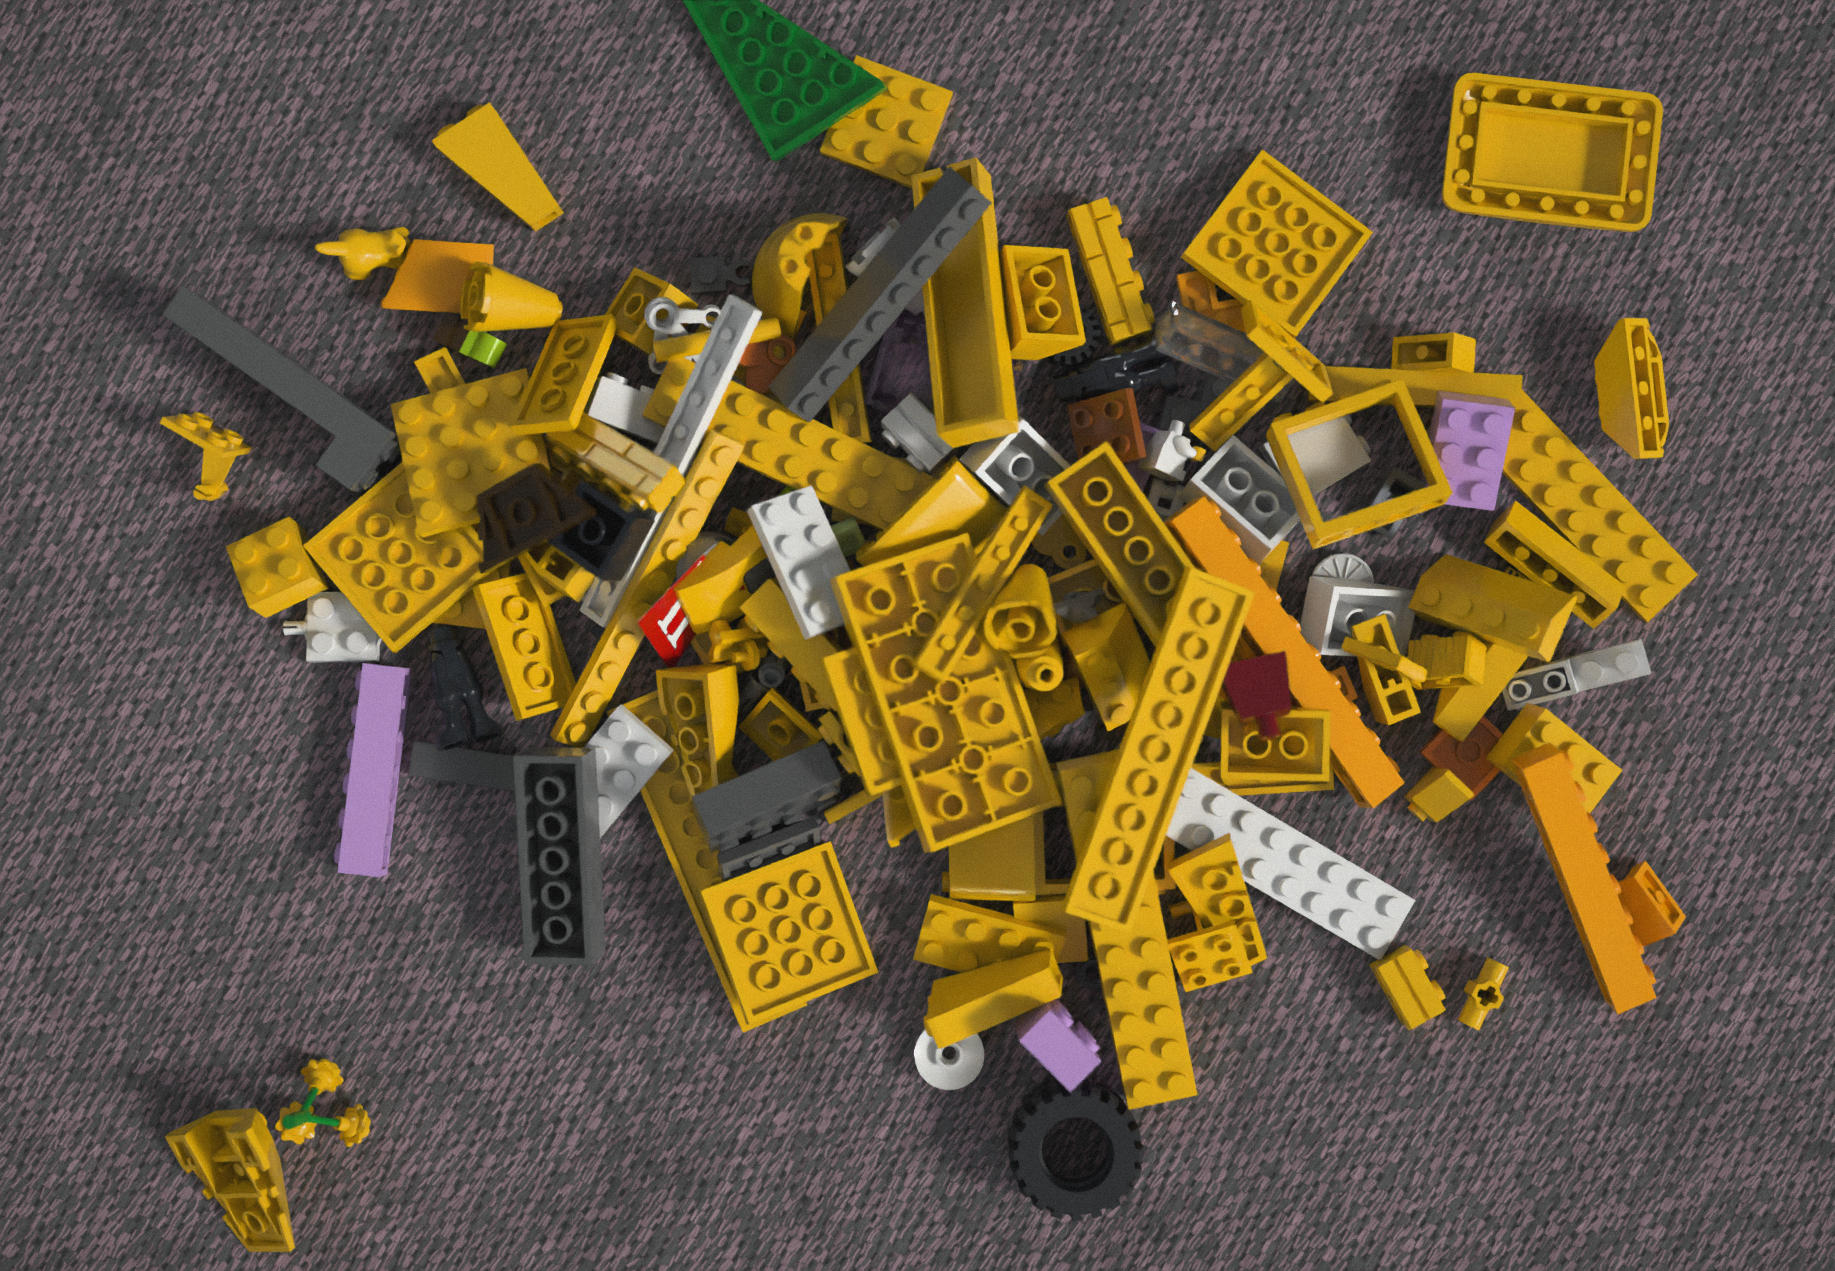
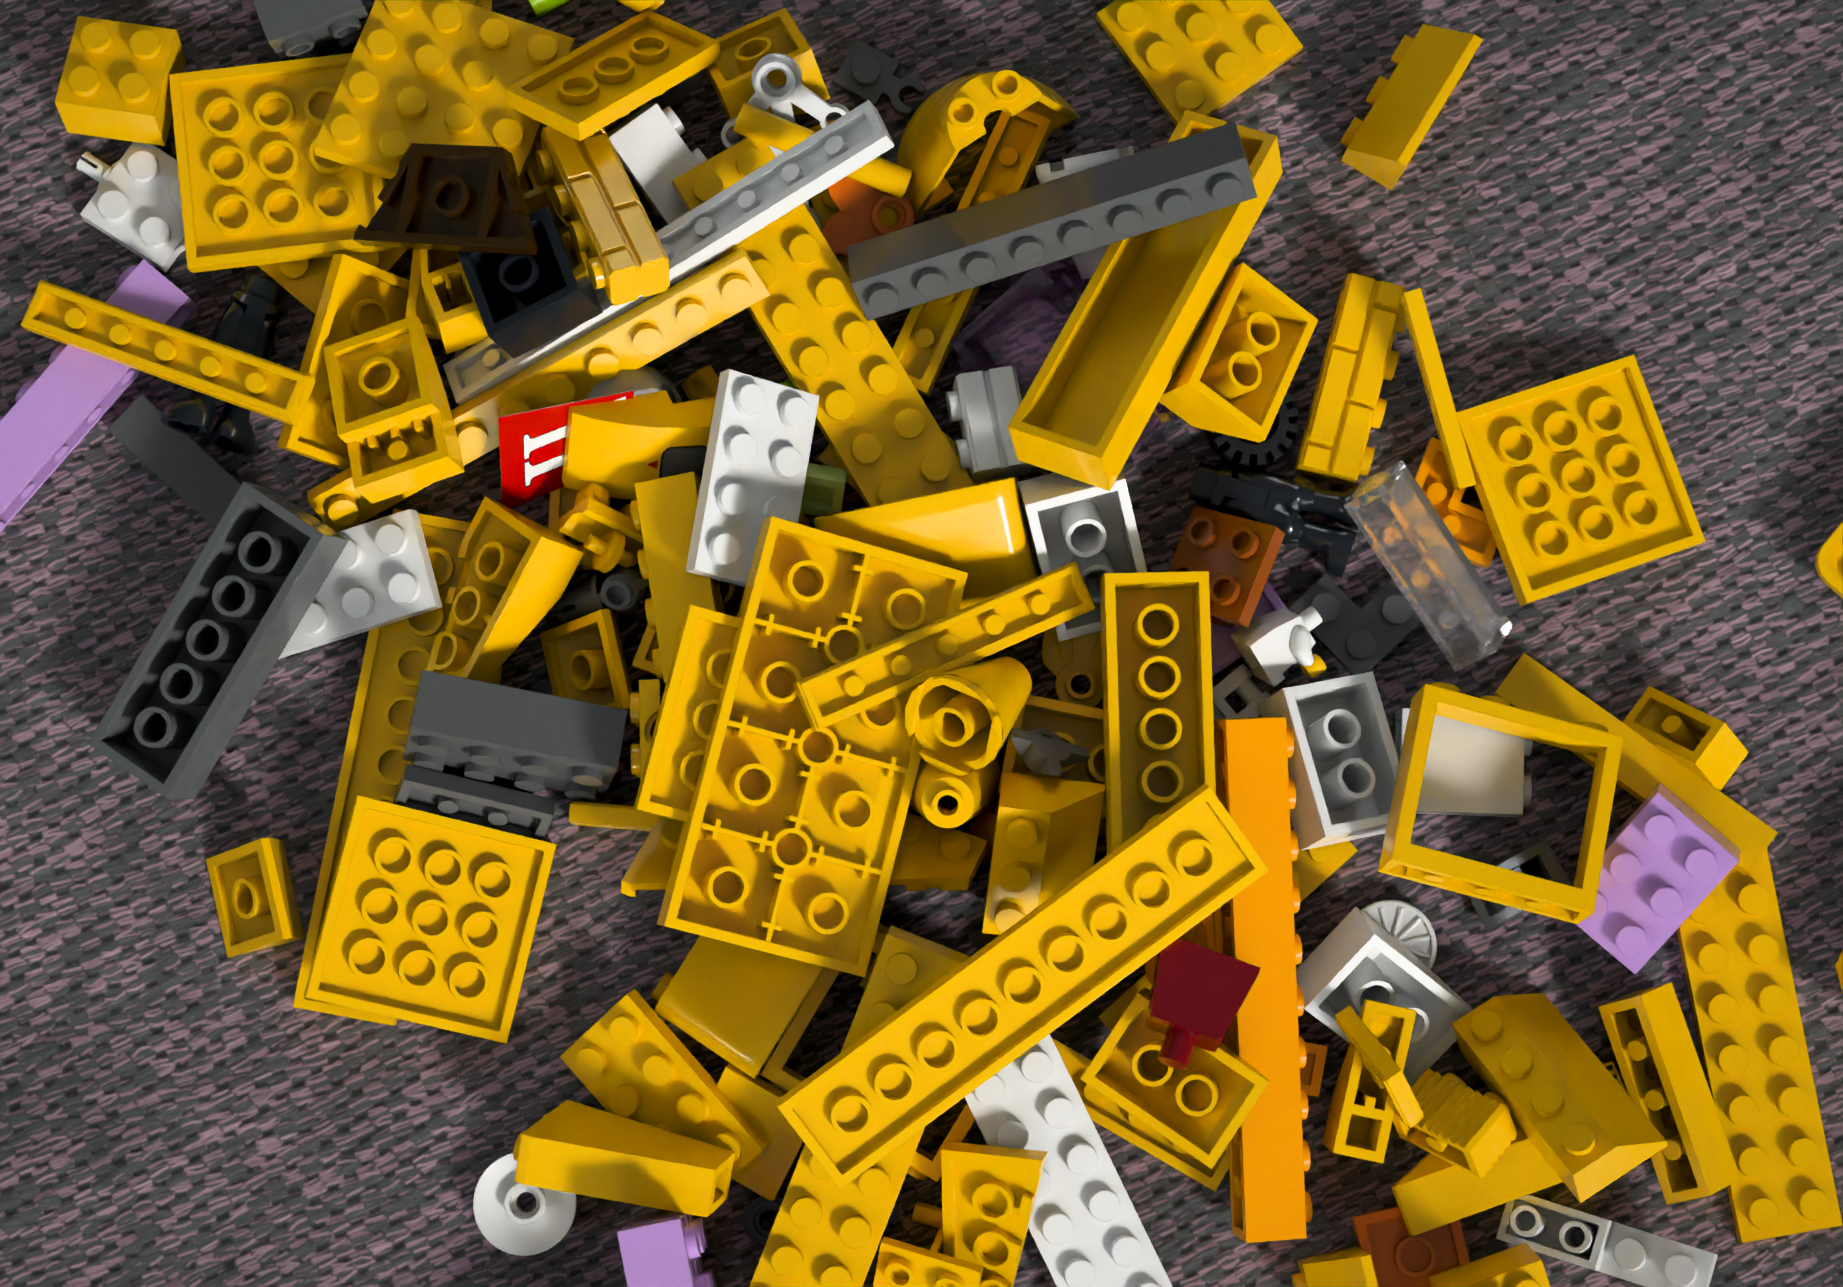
camera: 30 degrees right, 5 degrees down
(416, 709) = (168, 353): none -> yellow tile
(569, 656) = (392, 410): none -> yellow slope
(678, 985) = (255, 897): none -> yellow slope
(1037, 85) = (1407, 102): none -> yellow slope
(1165, 246) = (1437, 389): none -> yellow tile
(1261, 379) = (1485, 618): yellow piece -> none

